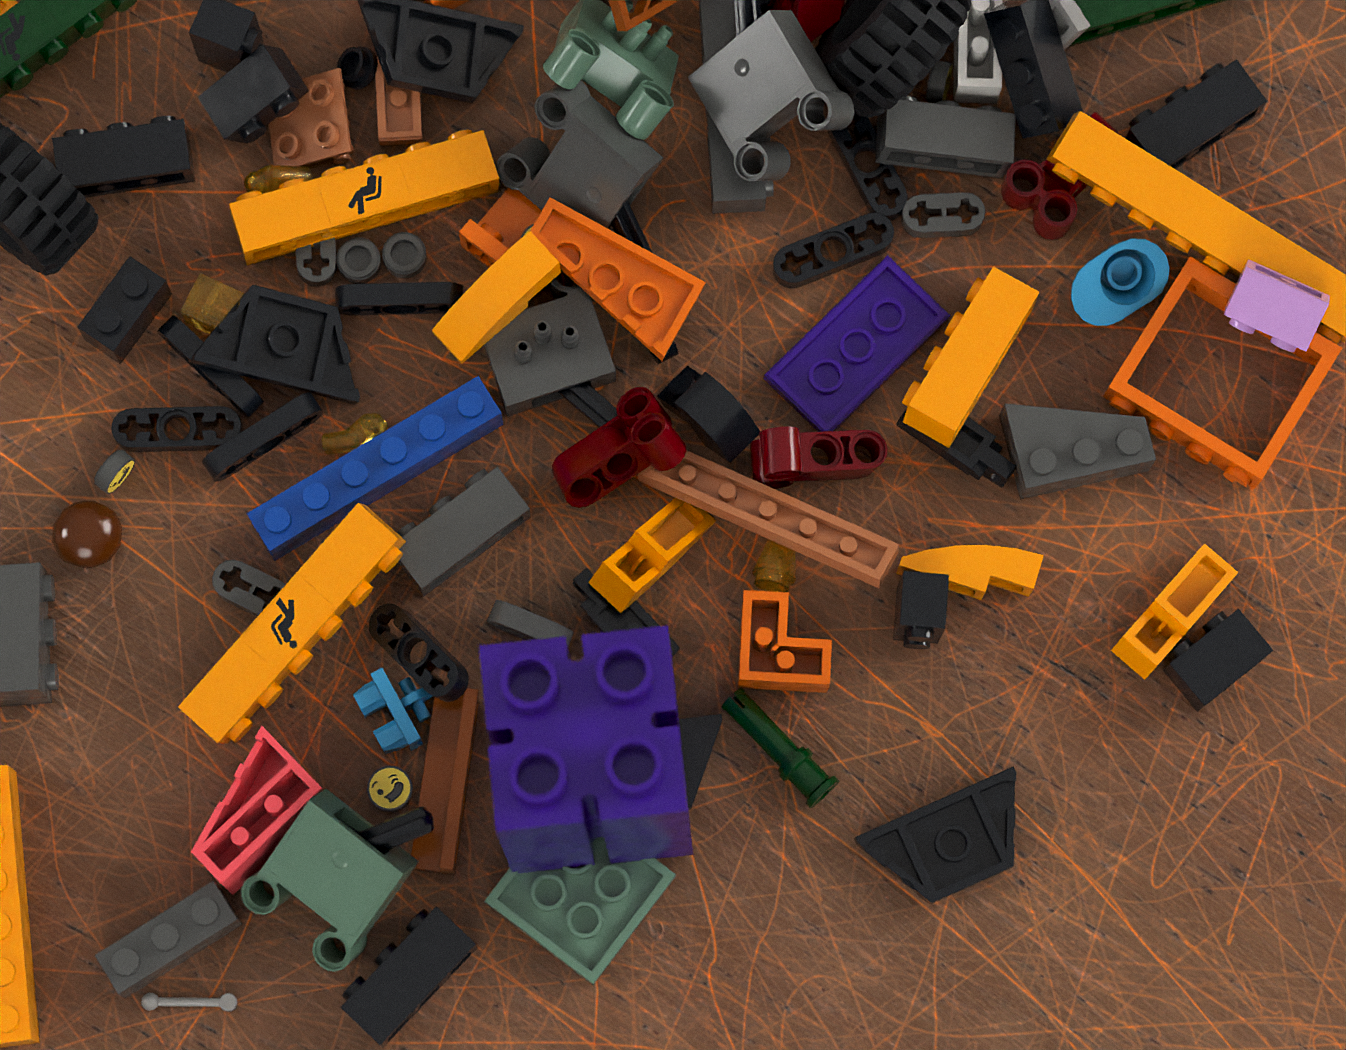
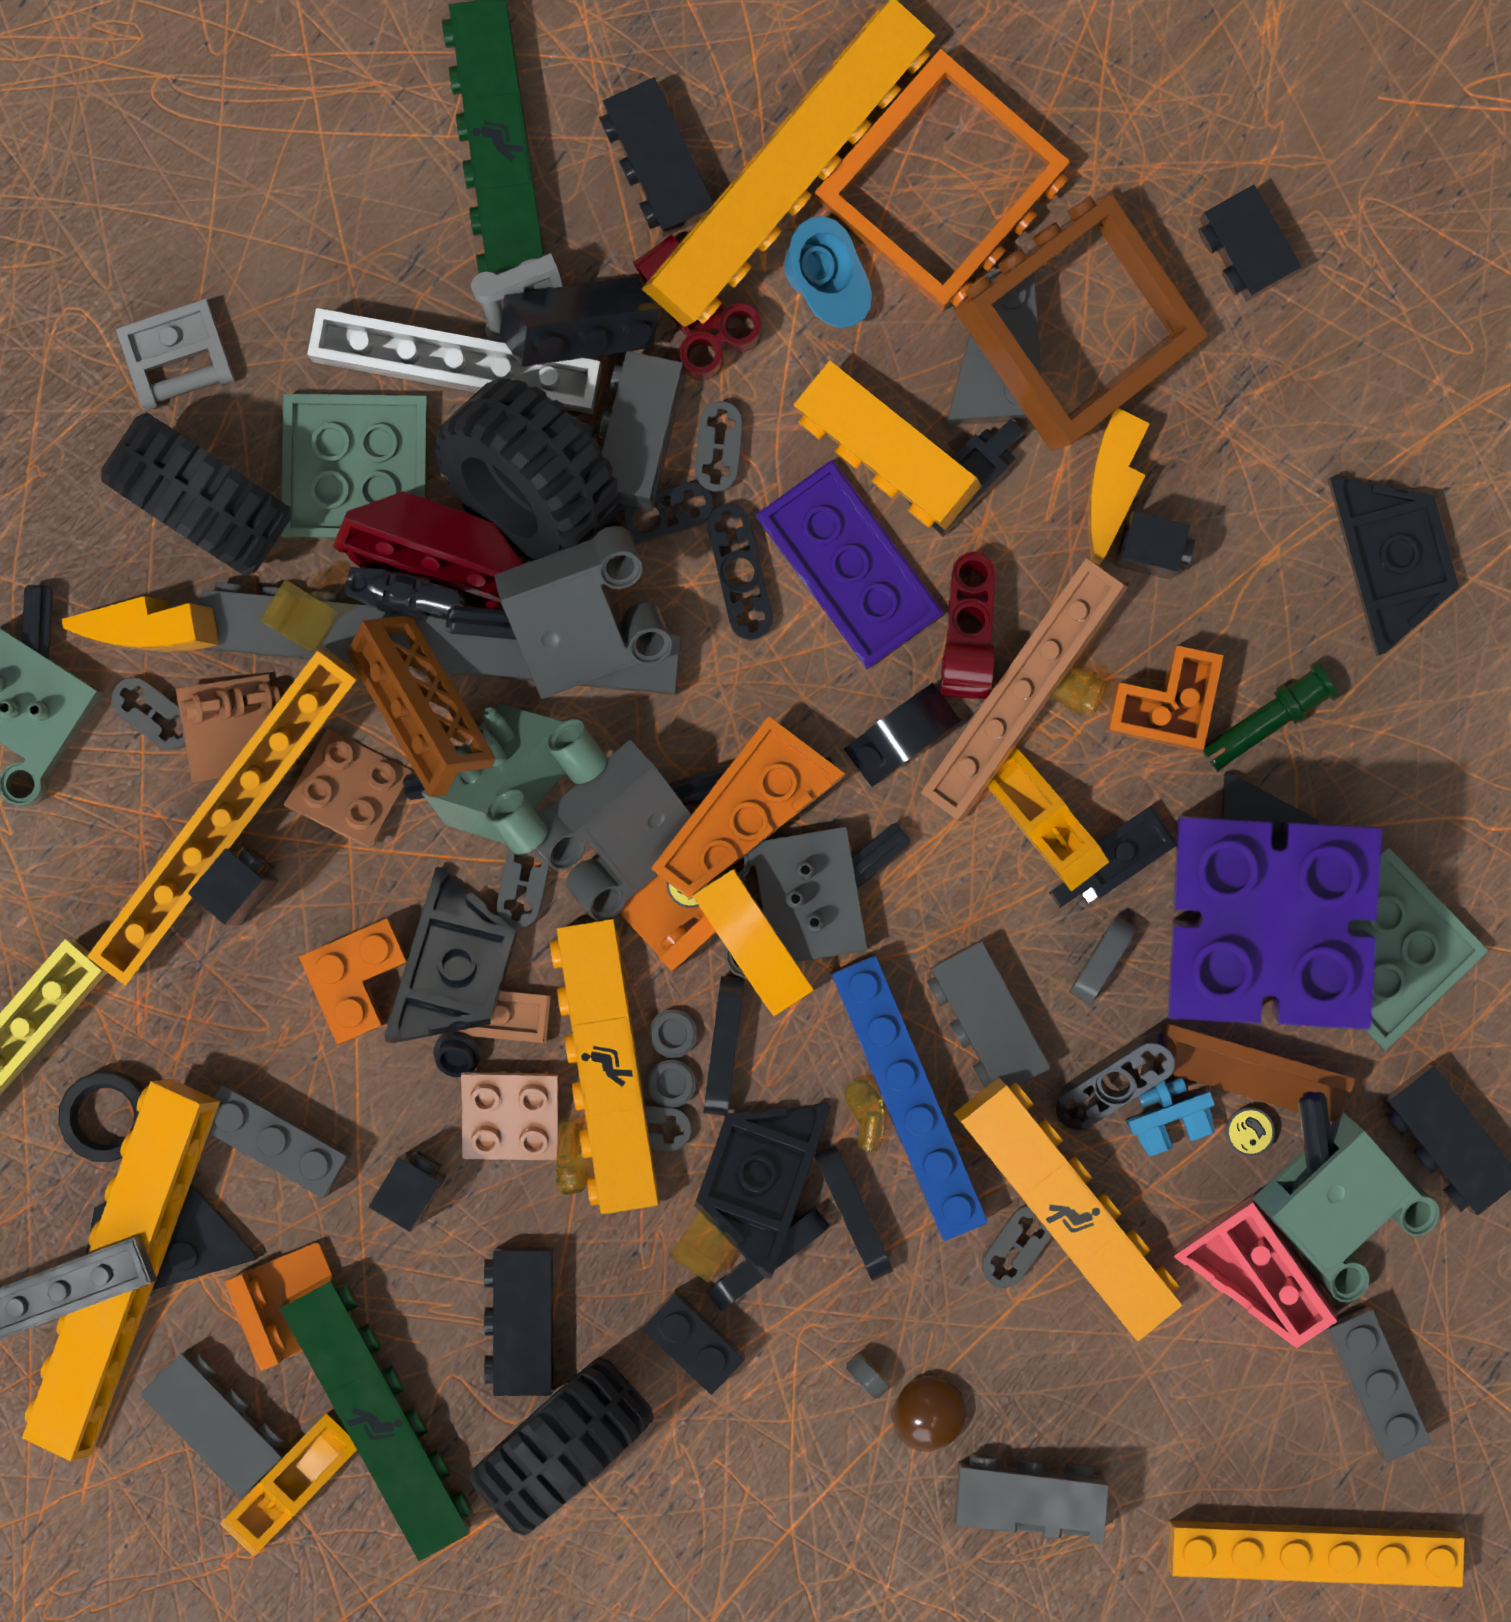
camera: 75 degrees left, 10 degrees up
(144, 440) = (812, 1337): black beam -> none
(227, 1002) = (1444, 1331): light grey hinge -> none
(254, 94) = (476, 1171): black brick -> none
(513, 93) = (534, 893): none -> dark grey beam
(619, 450) = (931, 835): dark red piece -> none
(1060, 448) = (1013, 364): none -> dark orange window
(1174, 611) = (1197, 279): light orange slope -> none
(1276, 307) = (893, 111): lavender brick -> none

